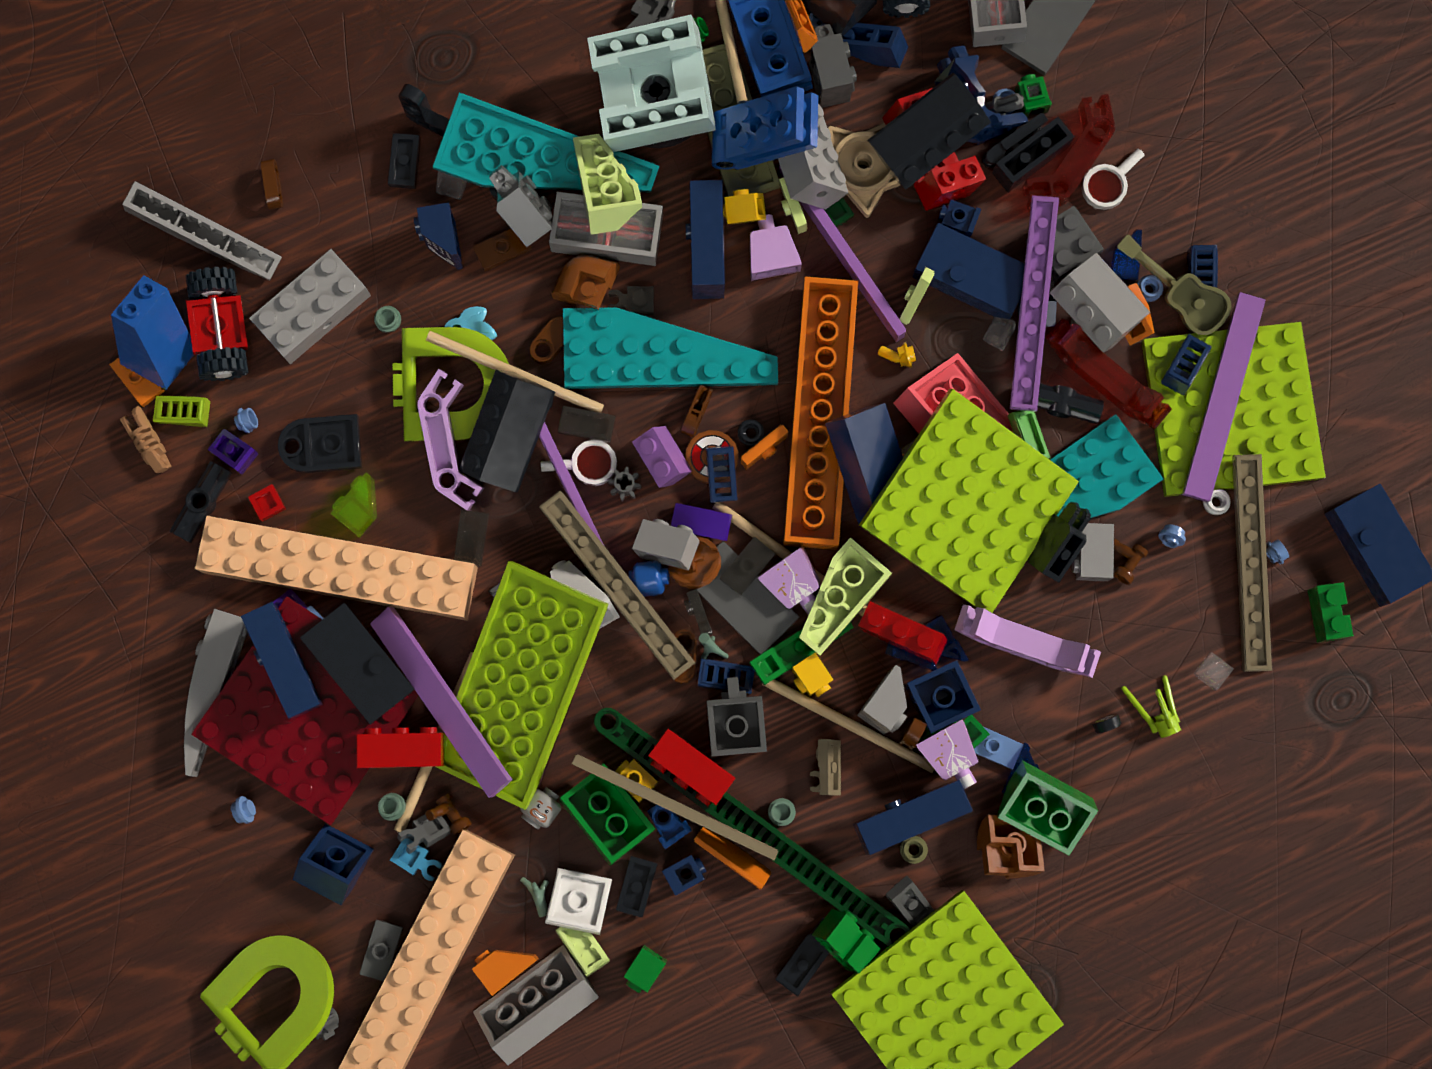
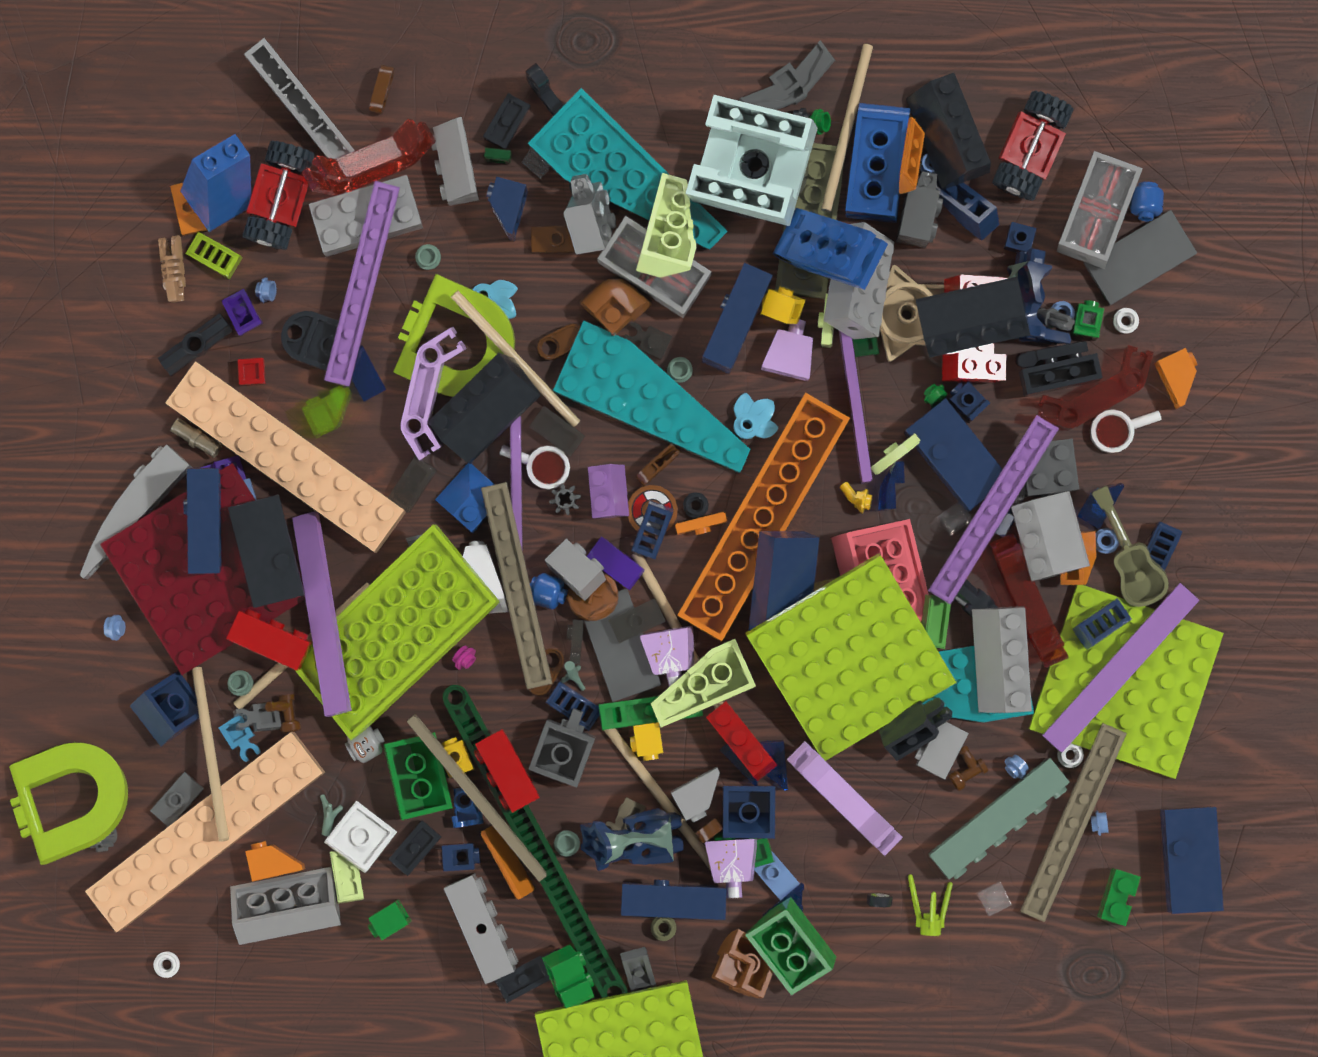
camera: 25 degrees right, 5 degrees up
(241, 590) = (196, 437): none -> dark tan pin
(292, 253) = (370, 162): none -> clear red piece
(334, 368) = (362, 283): none -> medium lavender tile
(372, 218) = (454, 163): none -> light grey slope
(379, 457) = (366, 377): none -> clear blue slope
(393, 890) = (210, 754): none -> tan piece
(410, 195) = (497, 156): none -> dark green tile
(529, 527) = (465, 499): none -> blue slope
(598, 679) = (464, 657): none -> dark pink plate
(675, 313) = (679, 369): none -> sand green plate
(752, 948) = (486, 946): none -> light grey brick
(766, 323) = (757, 415): none -> medium azure plate
(844, 781) = (652, 834): none -> dark blue hips
(924, 334) = (887, 493): none -> clear blue slope
(925, 227) = (934, 395): none -> green plate
(928, 57) = (1011, 241): none -> dark blue plate
(1072, 76) = (1126, 312): none -> white plate
(1112, 439) = (1001, 659): none -> light grey slope
(1140, 108) = (1177, 375): none -> orange slope
(1180, 593) = (999, 818): none -> sand green brick

